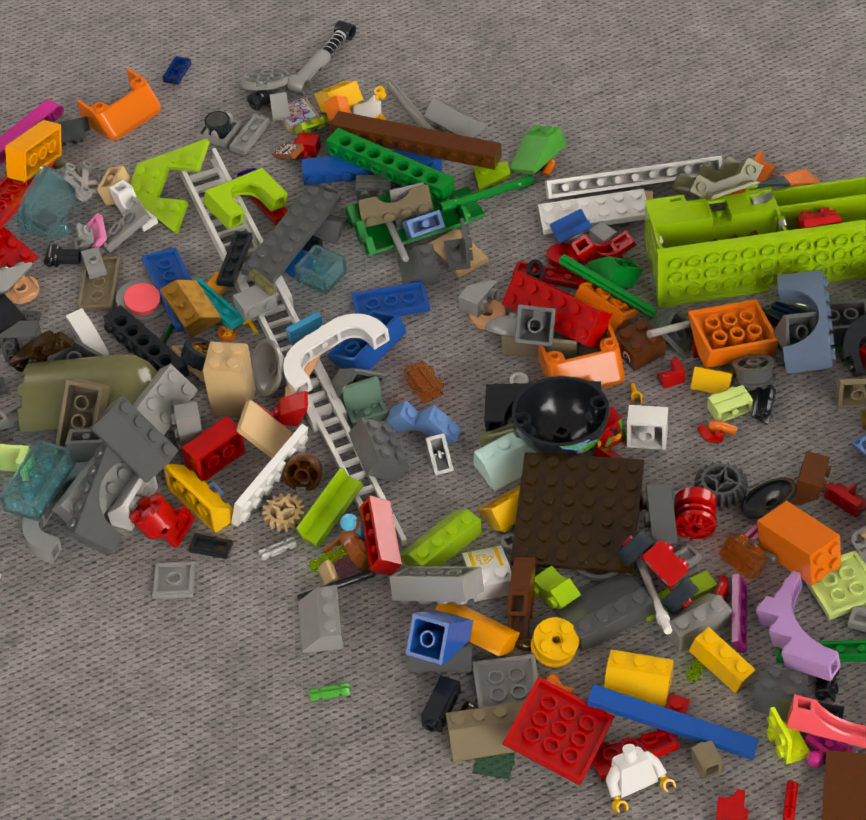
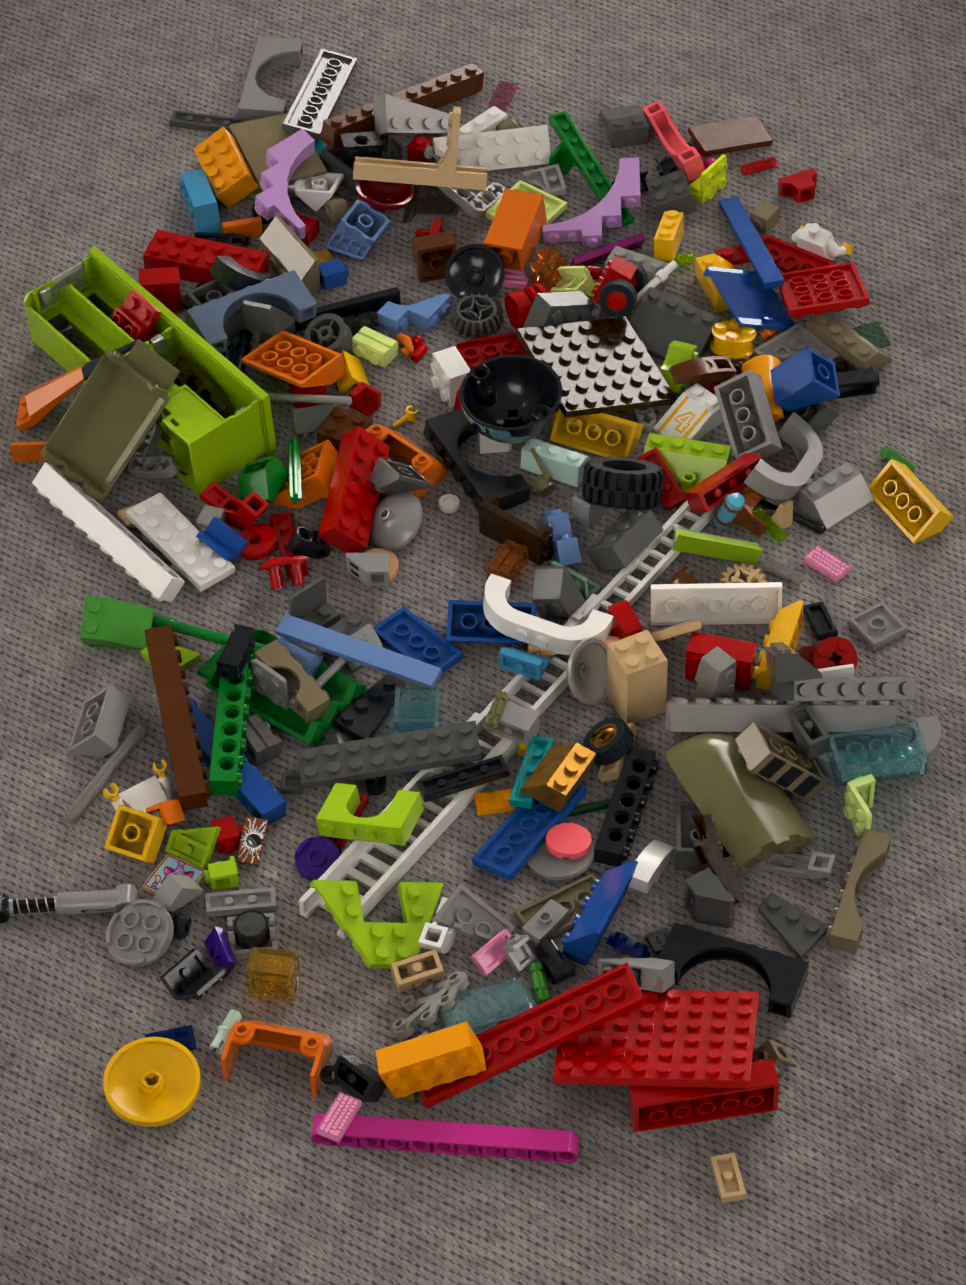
camera: 125 degrees left, 0 degrees up
(36, 295) = (620, 942): none -> clear blue plate
(44, 108) = (339, 1117): none -> bright pink tile
(45, 242) = (539, 982): none -> bright green axle
(65, 278) = (597, 913): none -> blue slope
(152, 47) = (152, 1081): none -> yellow dish
(161, 94) = (232, 1018): none -> light aqua axle
(172, 119) = (273, 974): none -> clear yellow brick
(206, 109) = (220, 950): none -> dark purple plate
(210, 93) = (192, 977): none -> black bracket
(262, 581) = (827, 563): none -> bright pink tile
(273, 669) = (908, 502): none -> yellow slope
(276, 132) = (222, 875): none -> lime brick
(341, 563) = (809, 453): none -> light grey arch
(347, 243) = (366, 712): none -> black wing
(391, 247) = (359, 651): none -> medium blue tile
(412, 530) = (688, 481): none -> lime pin
(429, 511) = (672, 494): none -> red plate
(432, 172) = (236, 653): none -> black window
(447, 388) = (502, 526): none -> dark brown panel
(449, 453) = (622, 483): none -> black tyre
(520, 252) = (274, 565): none -> red connector
(585, 662) = (749, 300): none -> blue door
(677, 470) = (488, 347): none -> red tile
(709, 561) = (573, 279): none -> yellowish green bracket
(744, 450) = (421, 314): none -> medium blue arch
(790, 409) = (356, 305): none -> black plate
(842, 413) = (333, 274): none -> blue brick

